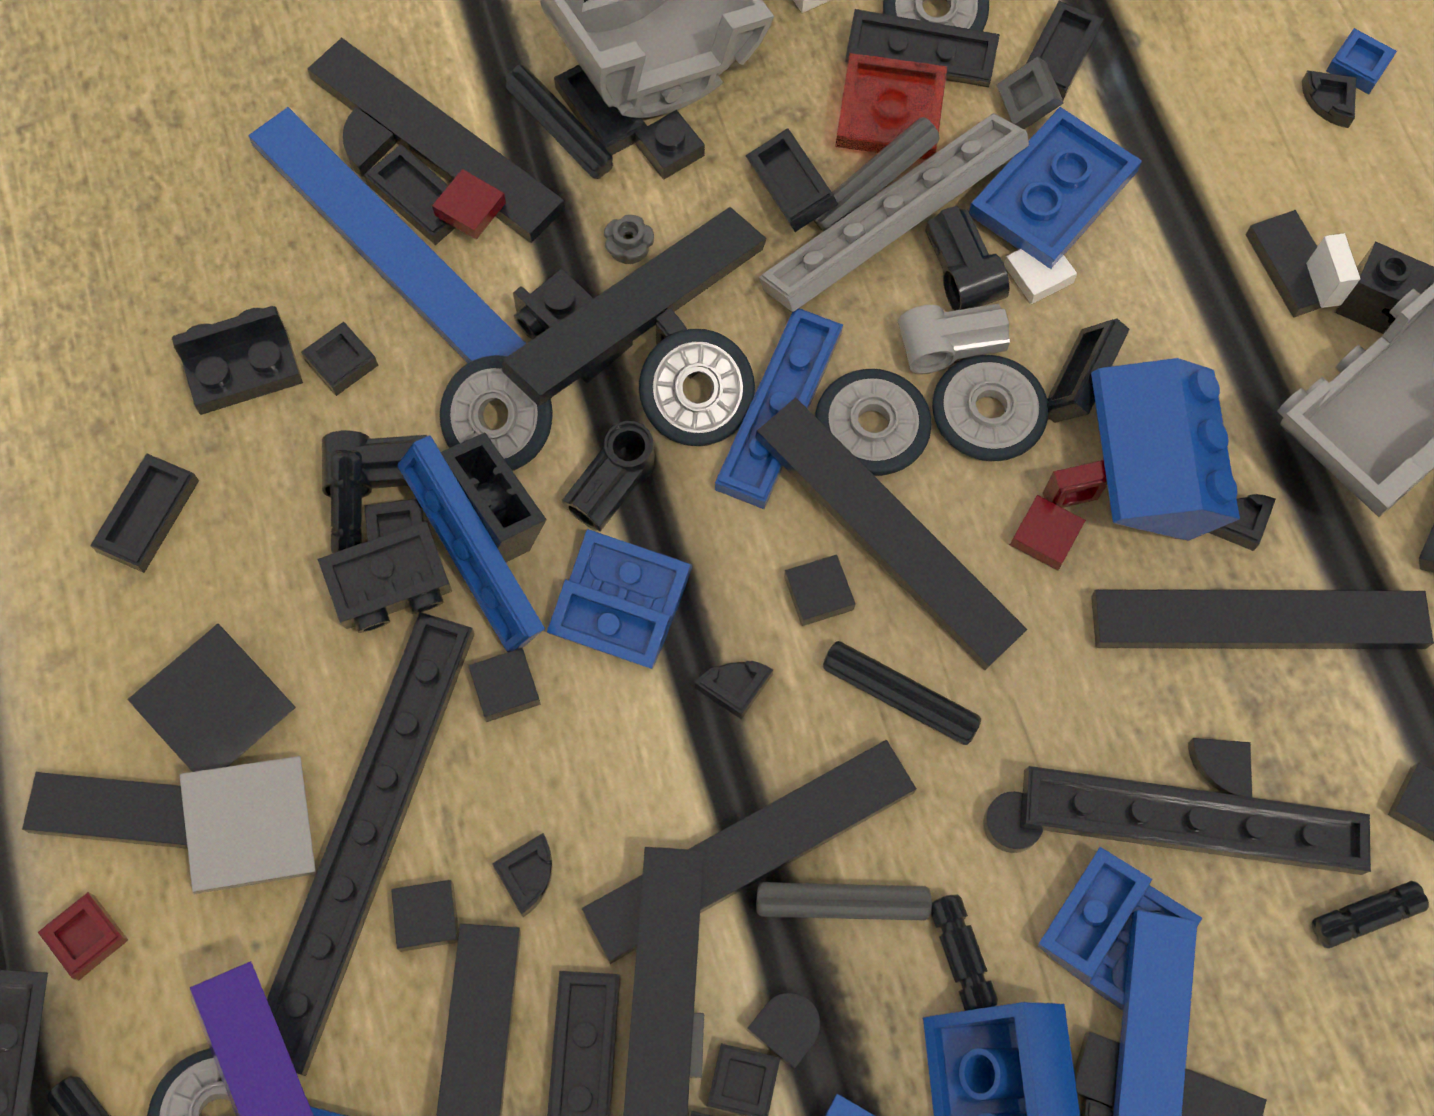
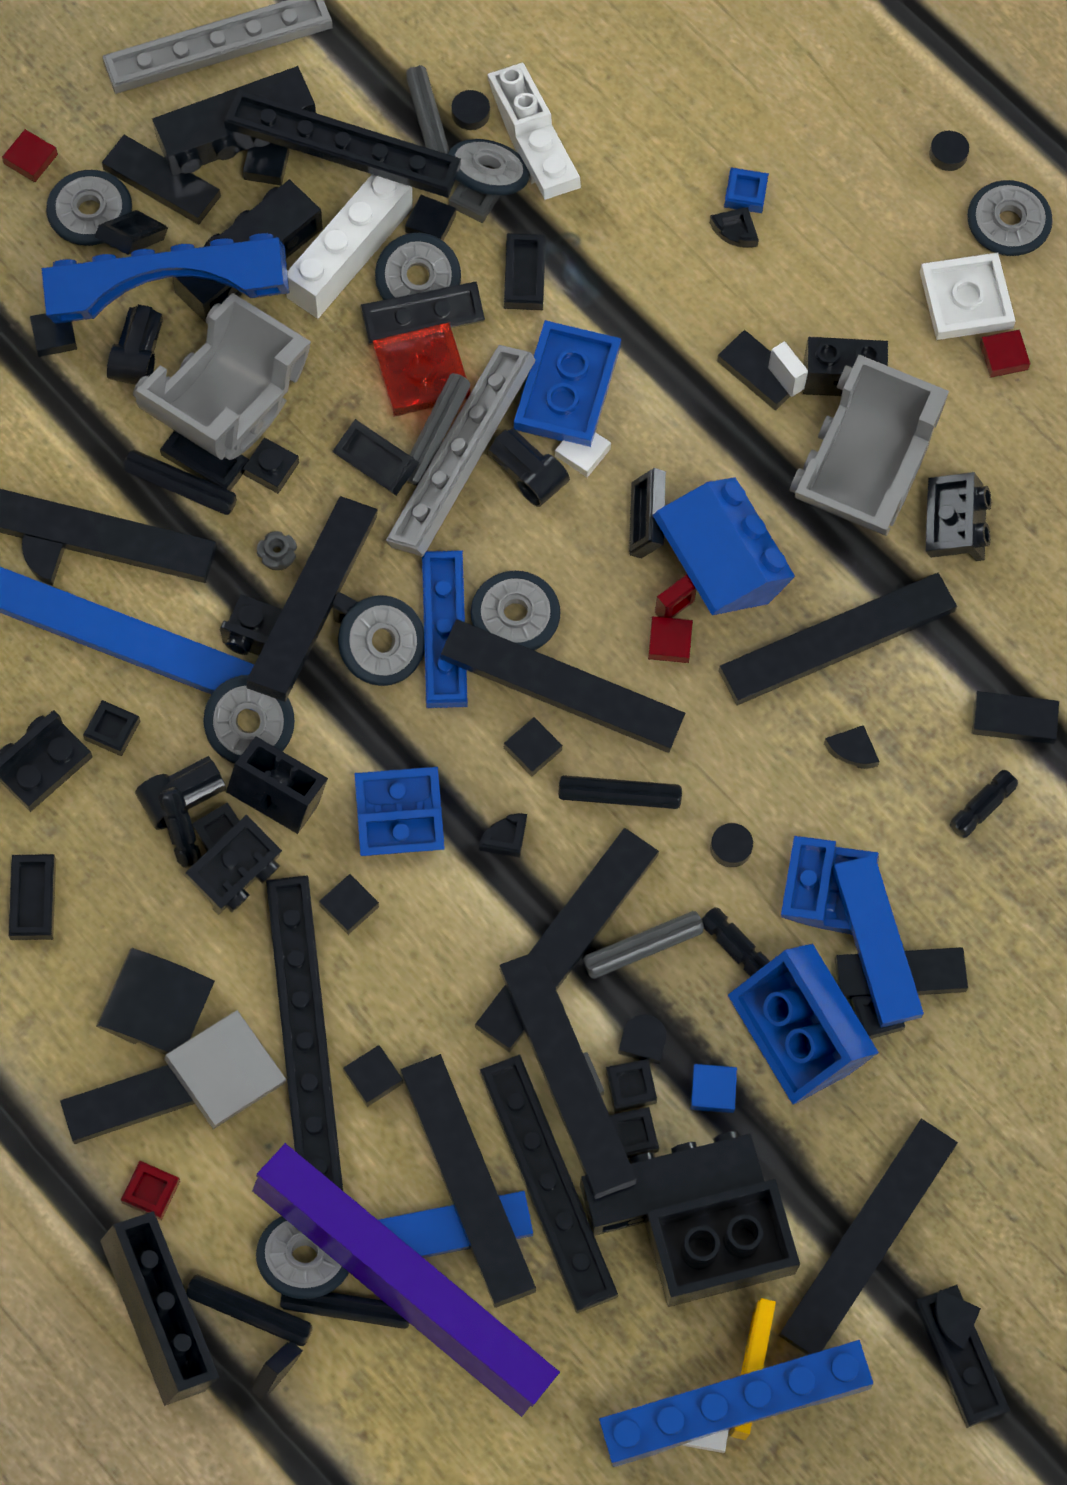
camera: 25 degrees left, 0 degrees up
(410, 190) = (103, 581): black tile -> none
(469, 204) = (150, 574): dark red tile -> none
(469, 545) = (282, 818): blue tile -> none
(527, 873) = (426, 1019): black tile -> none
(609, 478) = (352, 730): black piece -> none
(938, 337) = (535, 531): light grey piece -> none
(990, 437) = (588, 590): light grey wheel -> none
(1030, 93) = (518, 318): dark grey plate -> none
(1196, 820) = (848, 792): black tile -> none
(1249, 529) = (805, 573): black tile -> none

